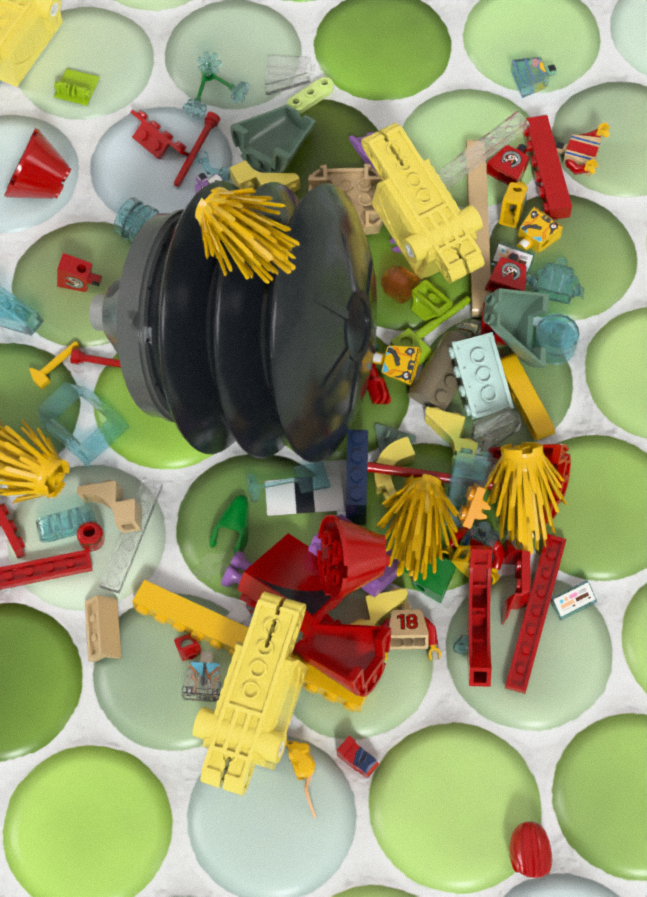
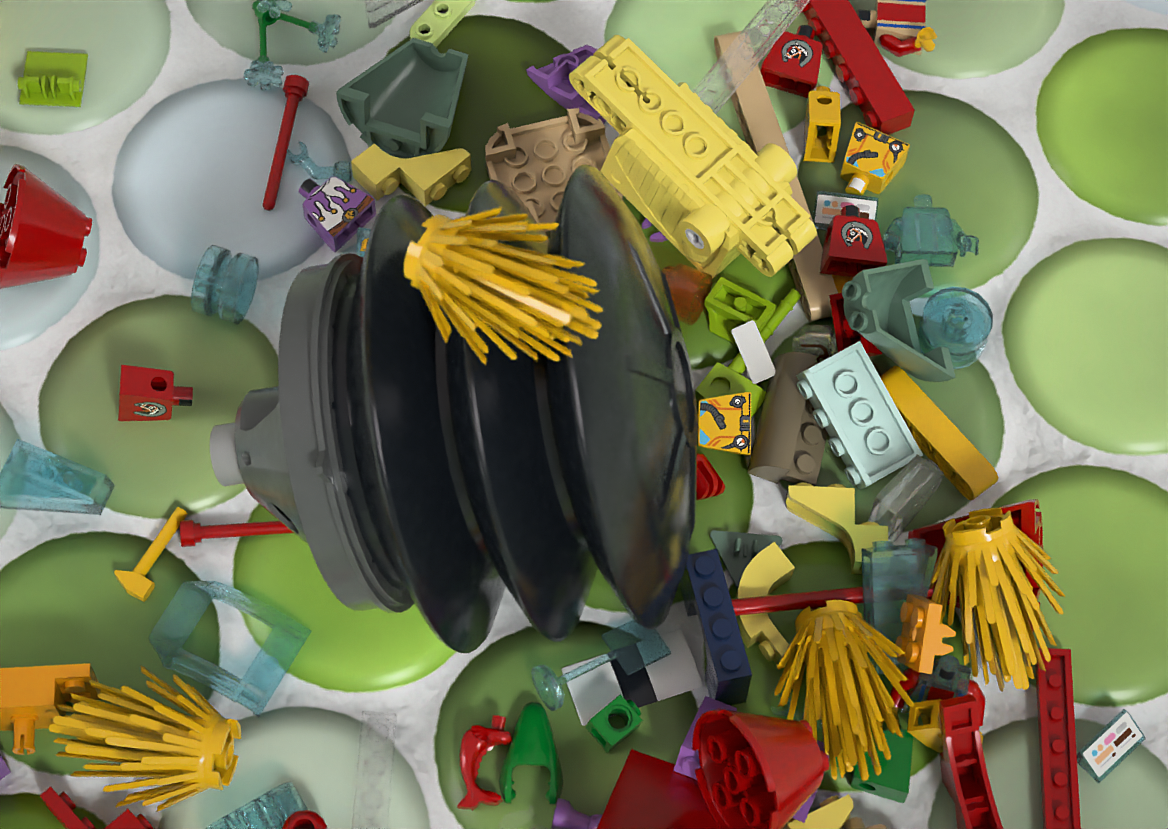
camera: 20 degrees left, 0 degrees up
(109, 493) = (316, 756): tan arch -> none
(153, 138) = (208, 138): red bracket -> none
(200, 511) = (473, 747): none -> red animal
(282, 525) = (607, 735): none -> green brick
(431, 326) = (753, 352): none -> white sticker
(521, 559) = (1025, 723): red piece -> none

